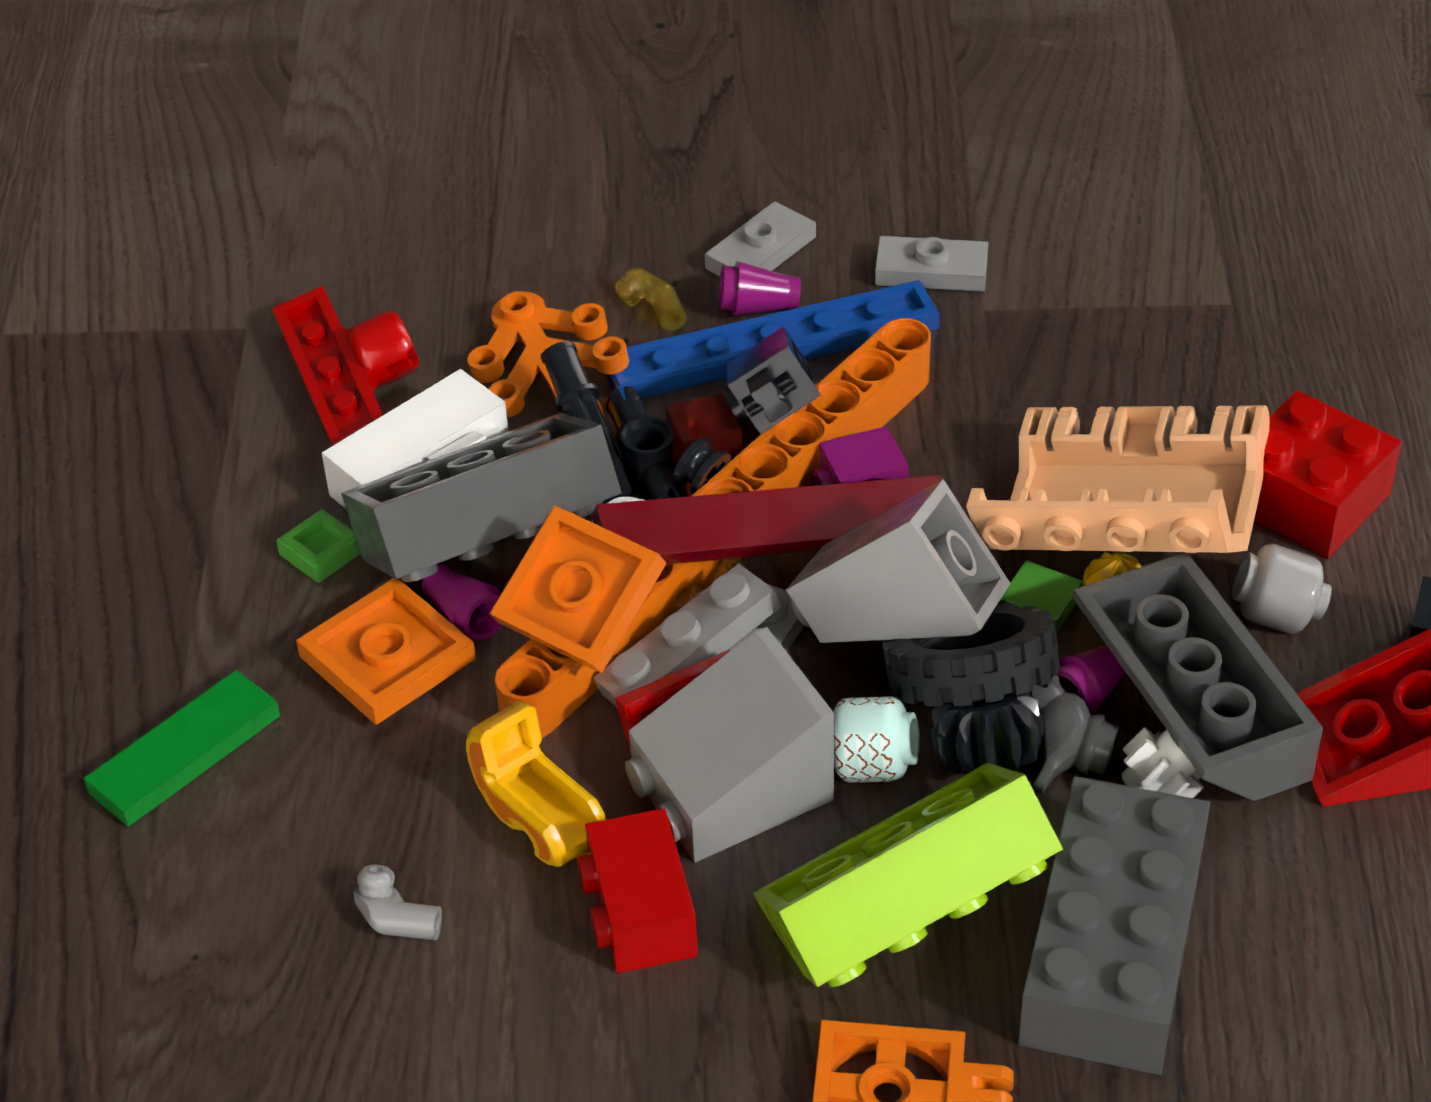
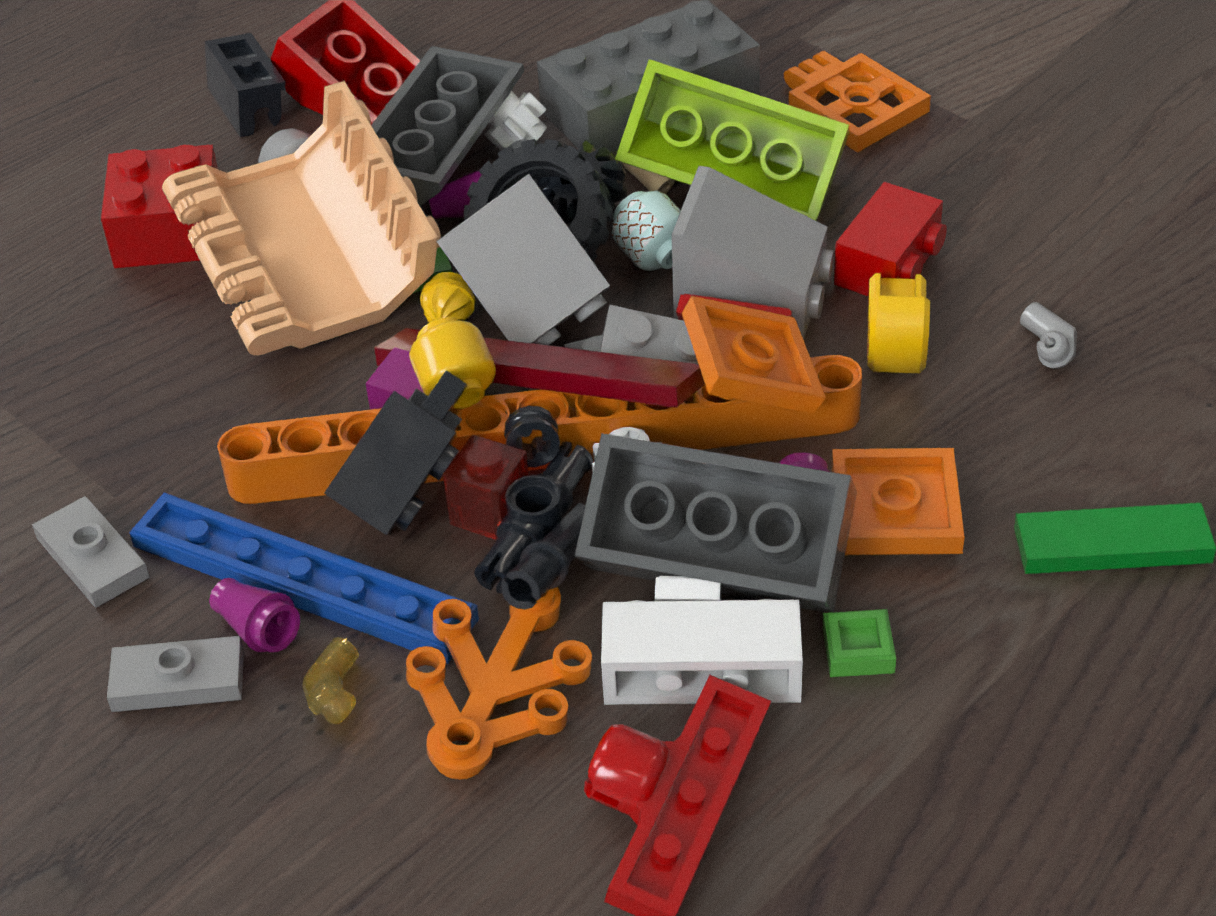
camera: 135 degrees left, 0 degrees up
(815, 443) = (455, 348): none -> yellow head

